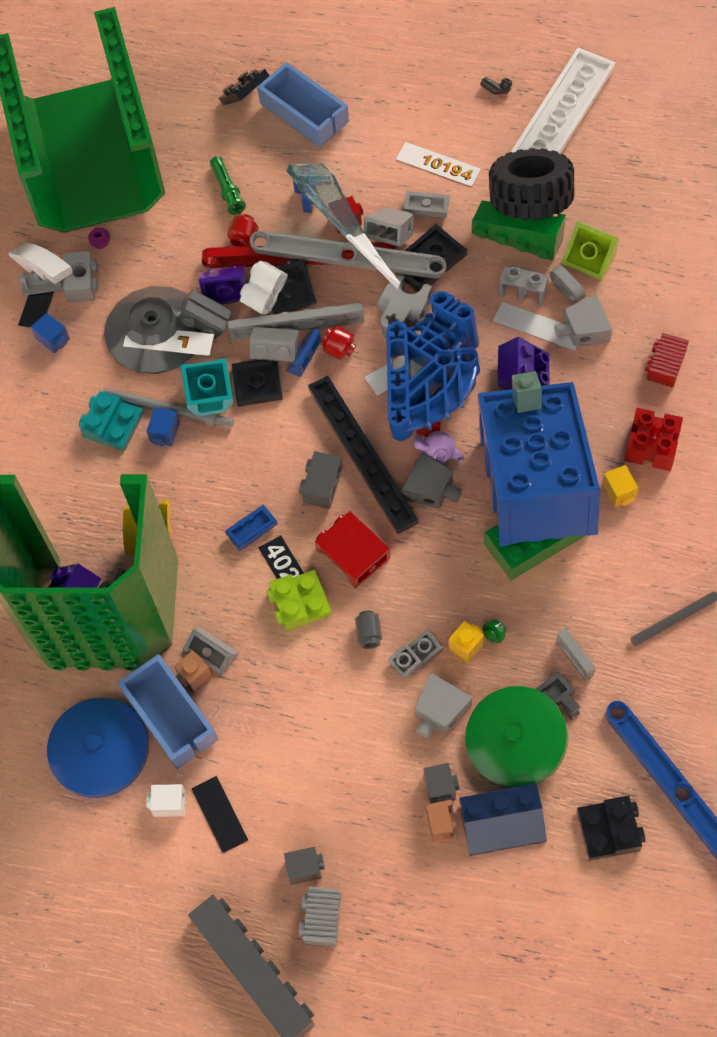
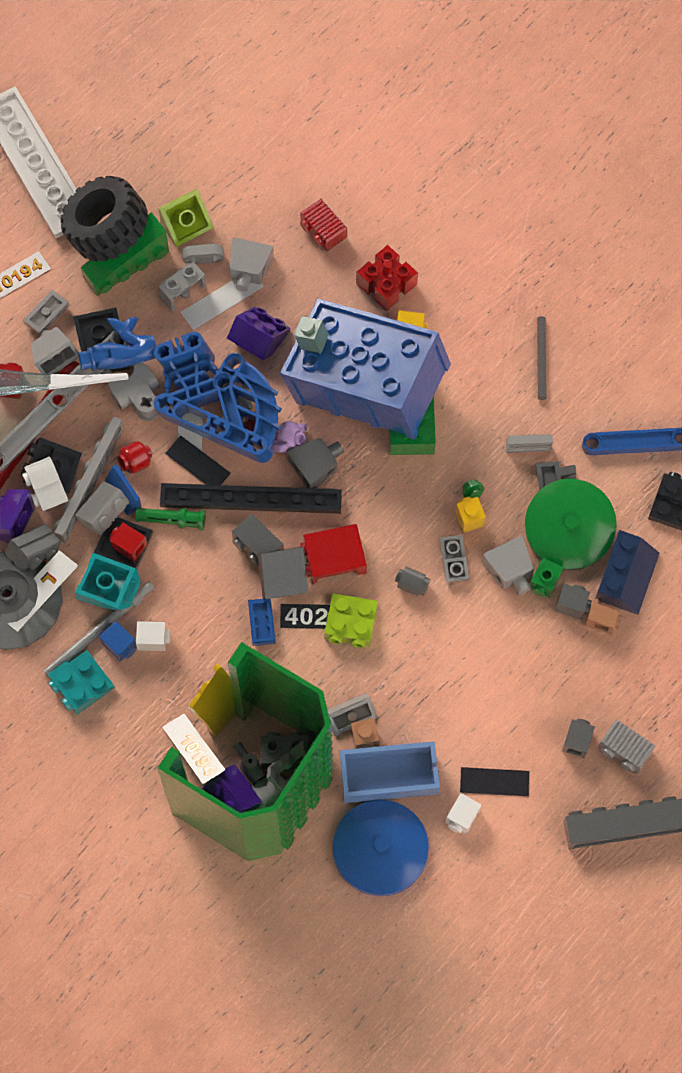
camera: 65 degrees left, 5 degrees up
(95, 538) = (193, 748): none -> white sticker
(183, 449) = (152, 636): none -> white brick
(254, 380) = (128, 541): none -> red brick
(303, 515) = (282, 572): none -> tile
(307, 410) = (181, 518): none -> green pin
(369, 395) = (197, 462): none -> black sticker
(414, 269) = (115, 355): none -> blue piece
(447, 746) = (546, 578): none -> green brick

